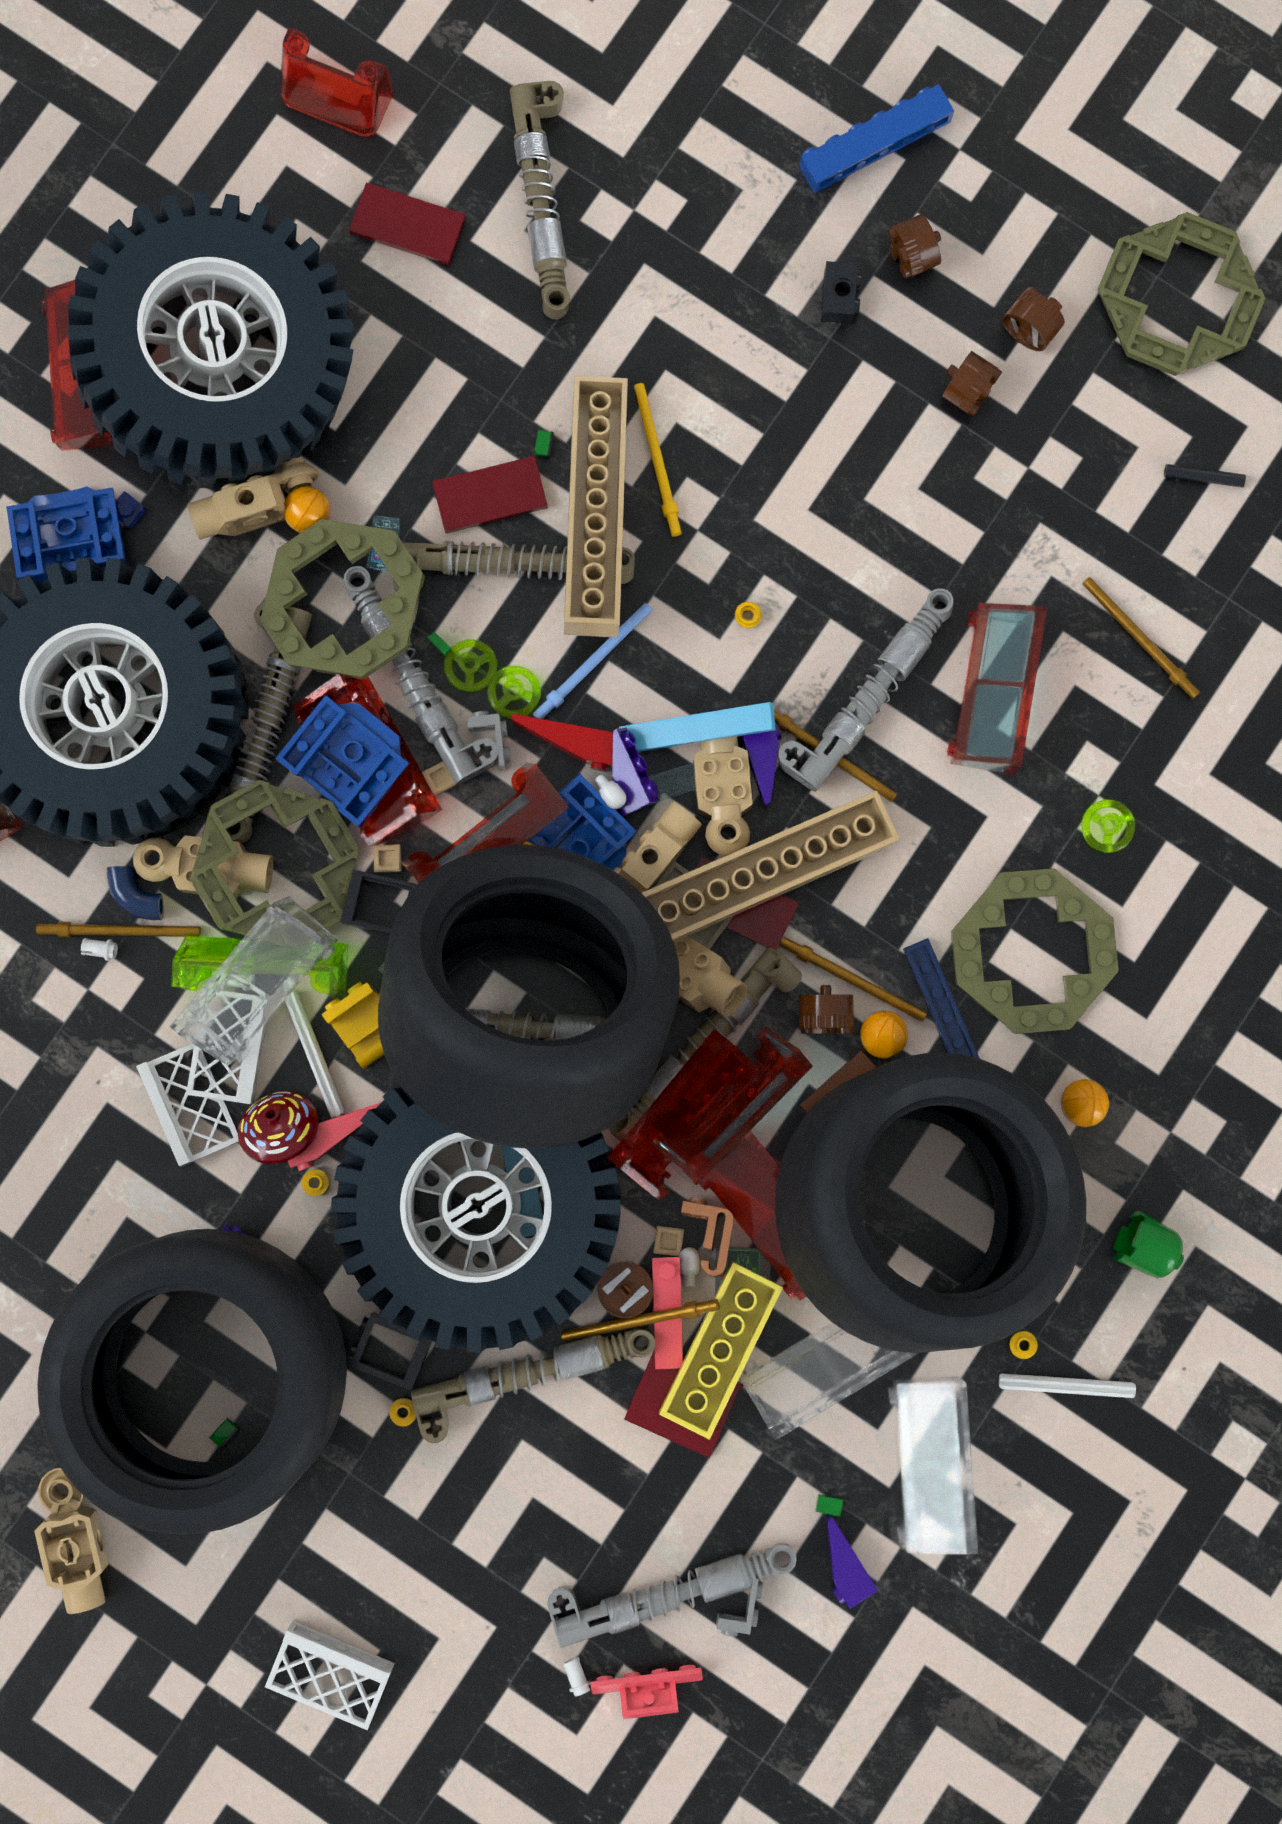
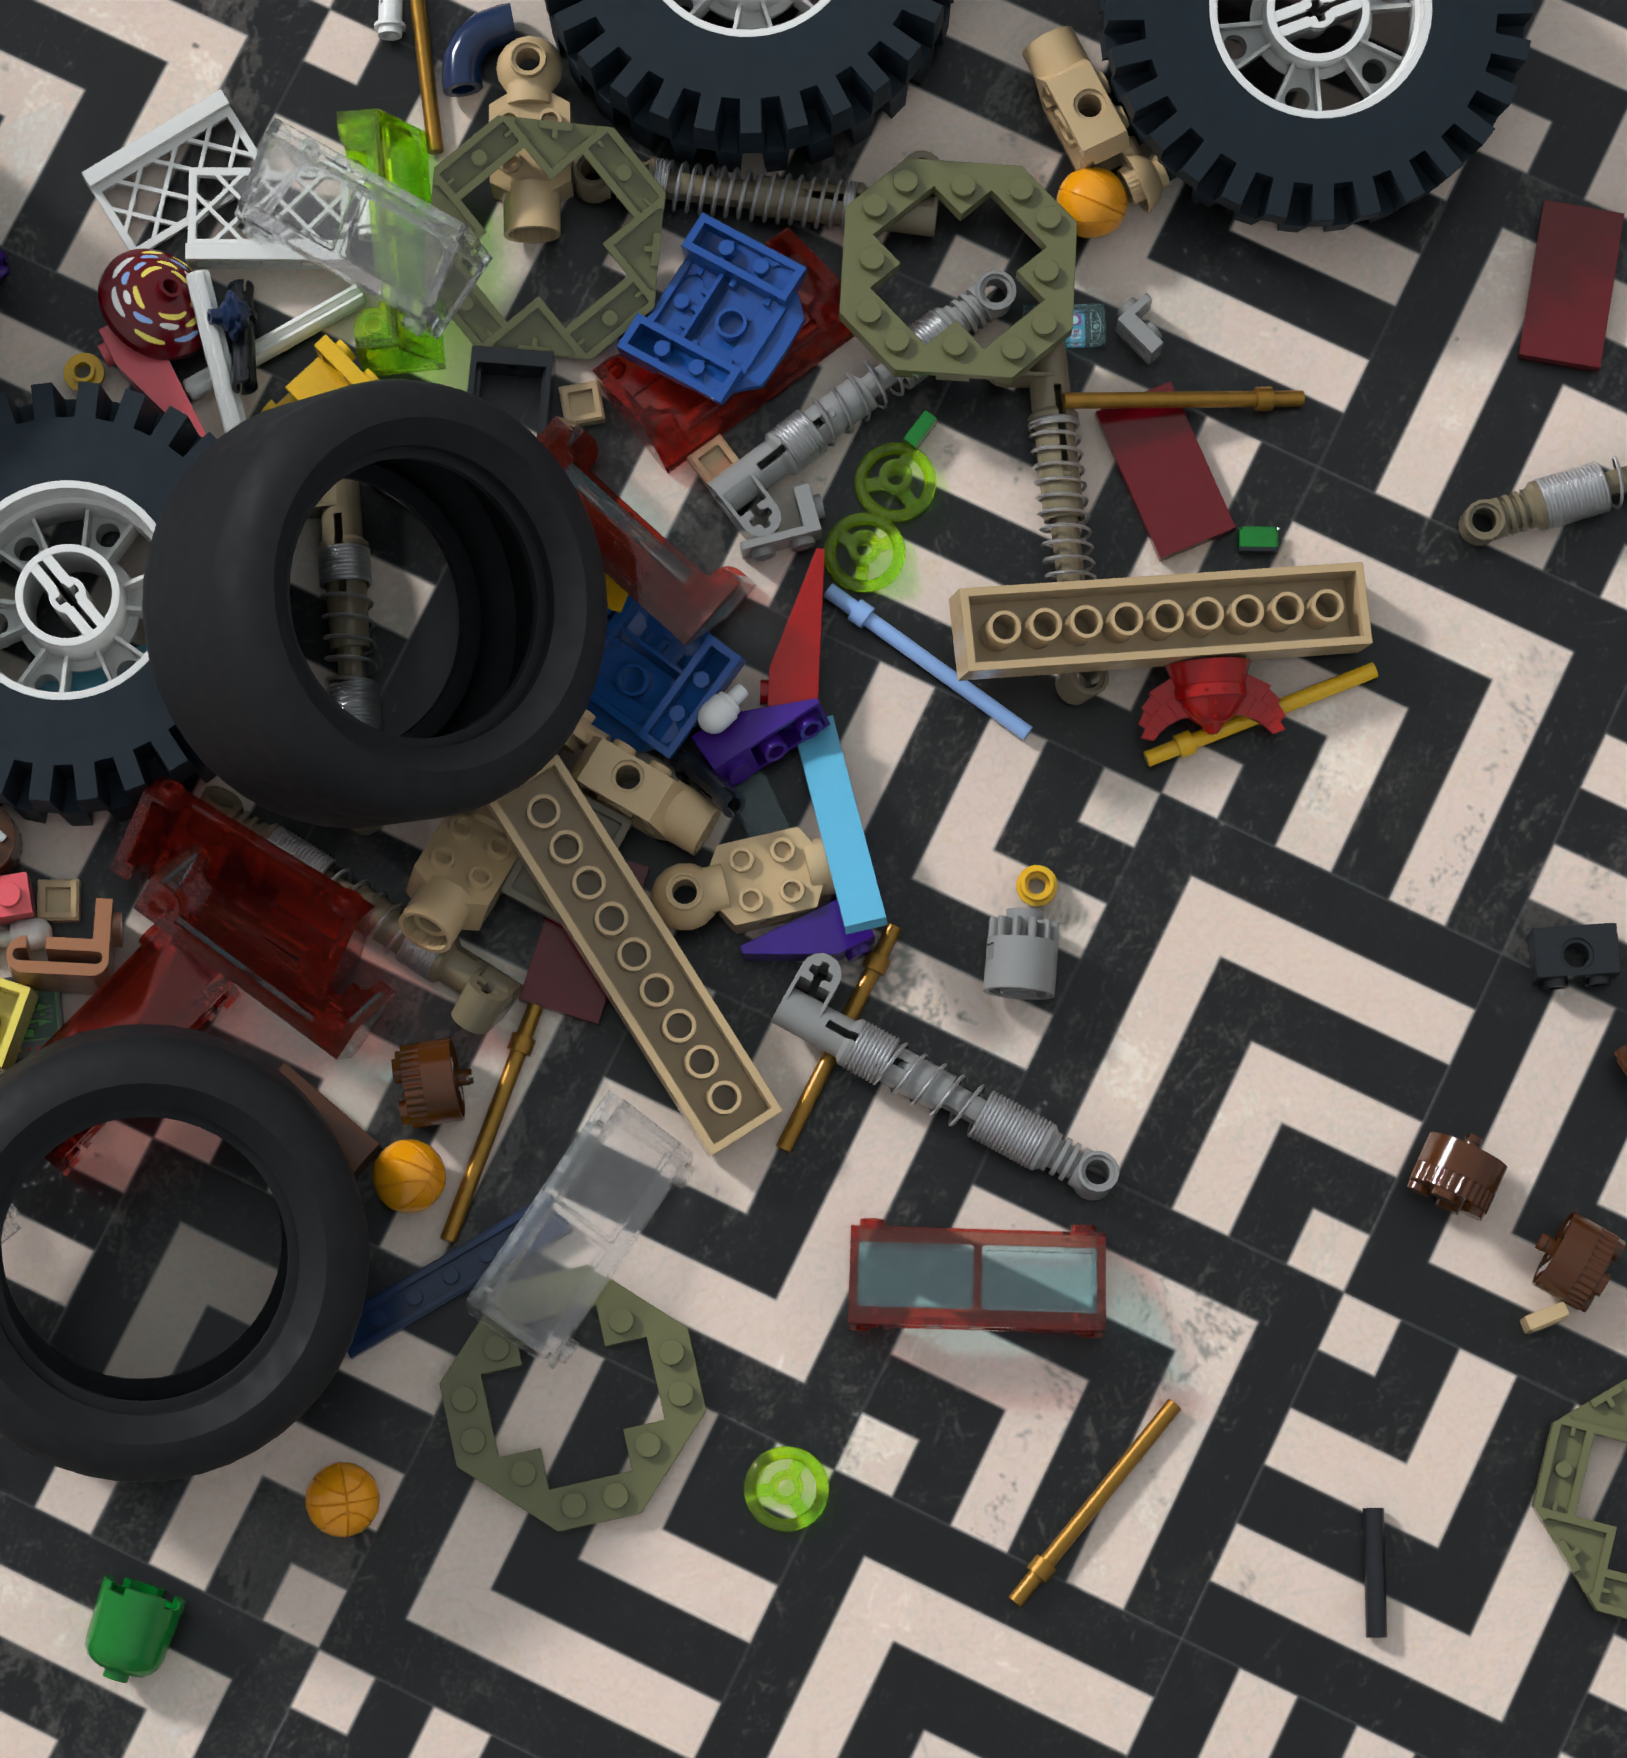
camera: 85 degrees right, 5 degrees down
(296, 1076) = (231, 315): none -> dark blue plant
(298, 1072) = (243, 350): none -> black pin
(328, 1089) = (215, 349): none -> white axle
(399, 495) = (1139, 335): none -> light grey bracket
(452, 428) = (1260, 399): none -> pearl gold bar
(645, 817) = (693, 770): none -> black pin
(646, 486) = (1210, 695): none -> red helmet
(794, 628) = (1021, 955): none -> light grey gear
(935, 928) = (579, 1230): none -> clear windscreen
(1063, 347) = (1544, 1318): none -> tan tile

